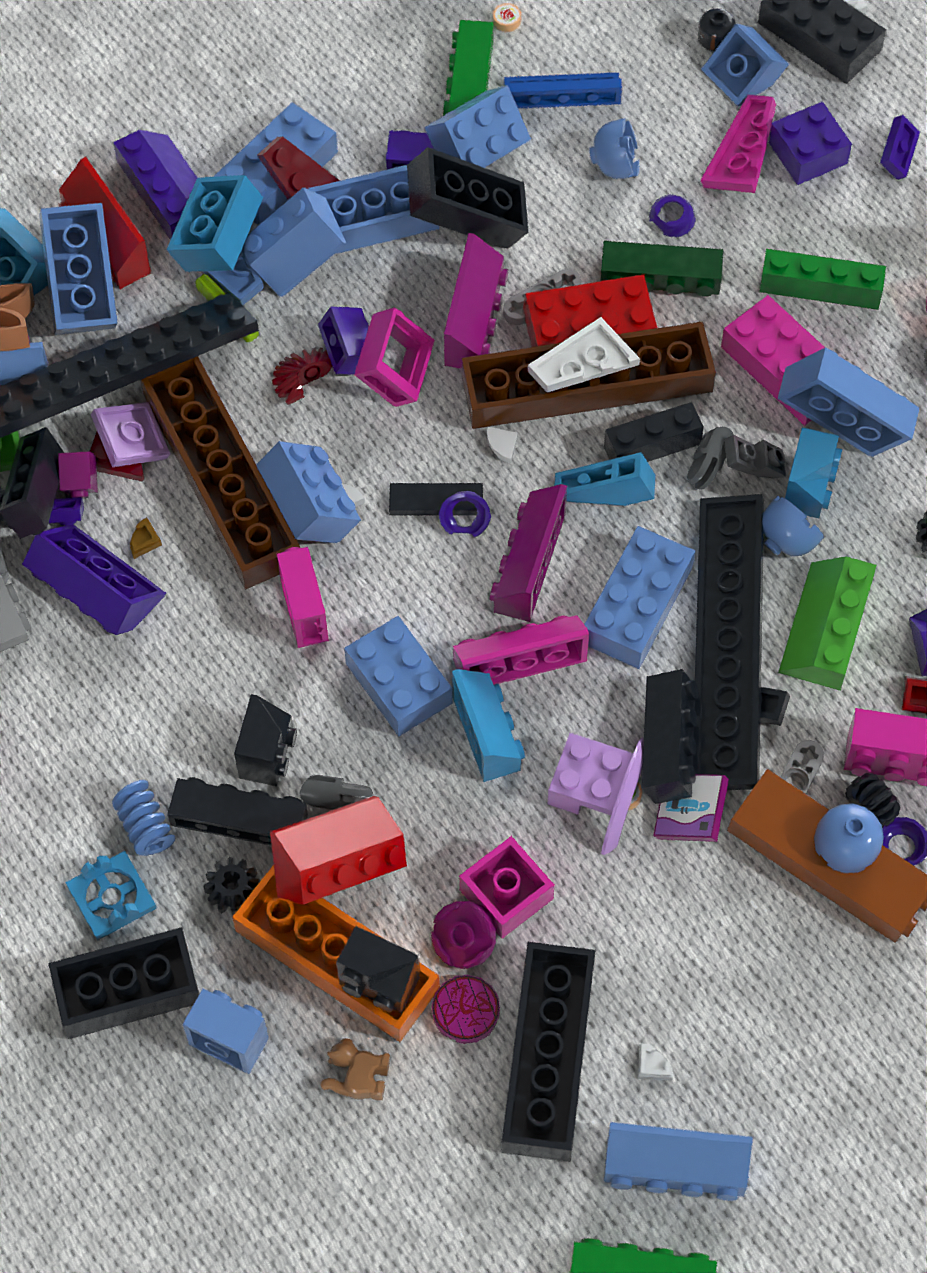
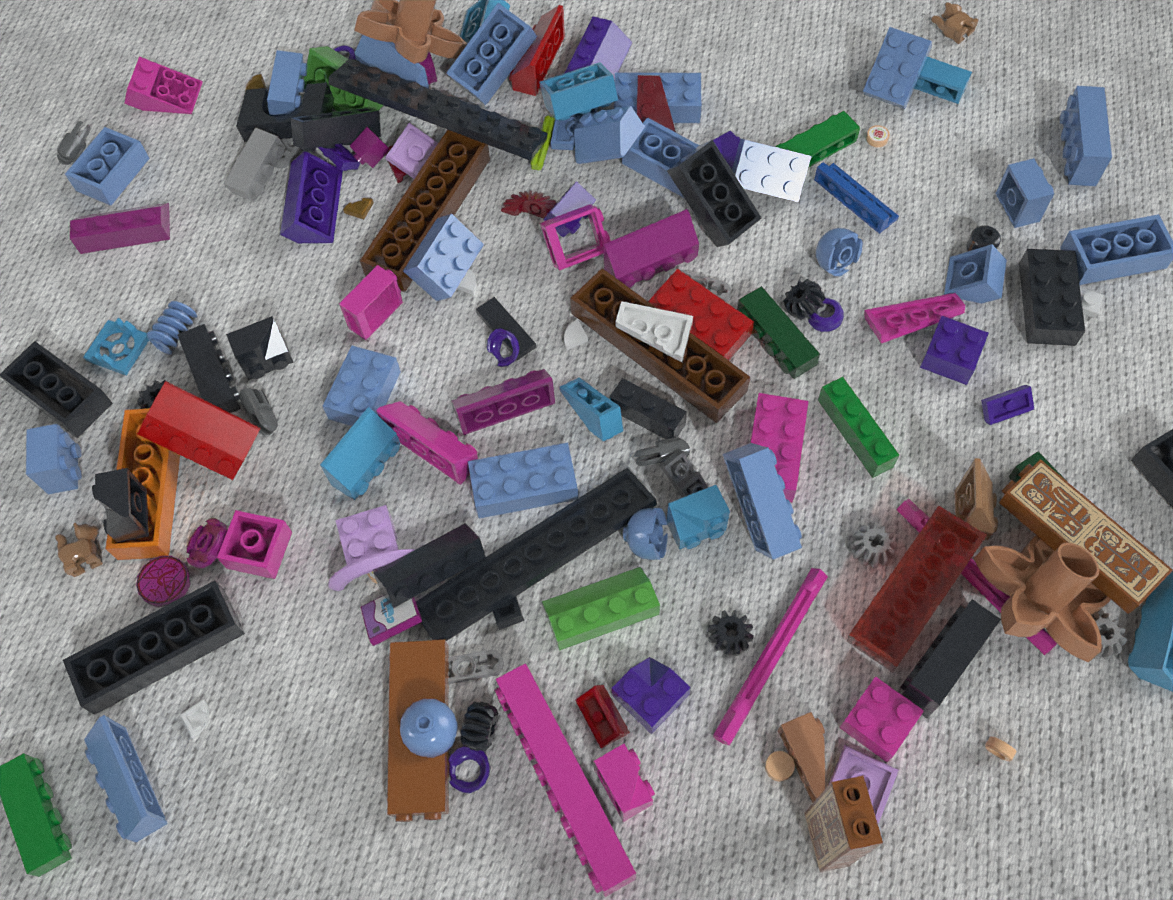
camera: 55 degrees right, 0 degrees up
(638, 213) = (804, 299): none -> black gear

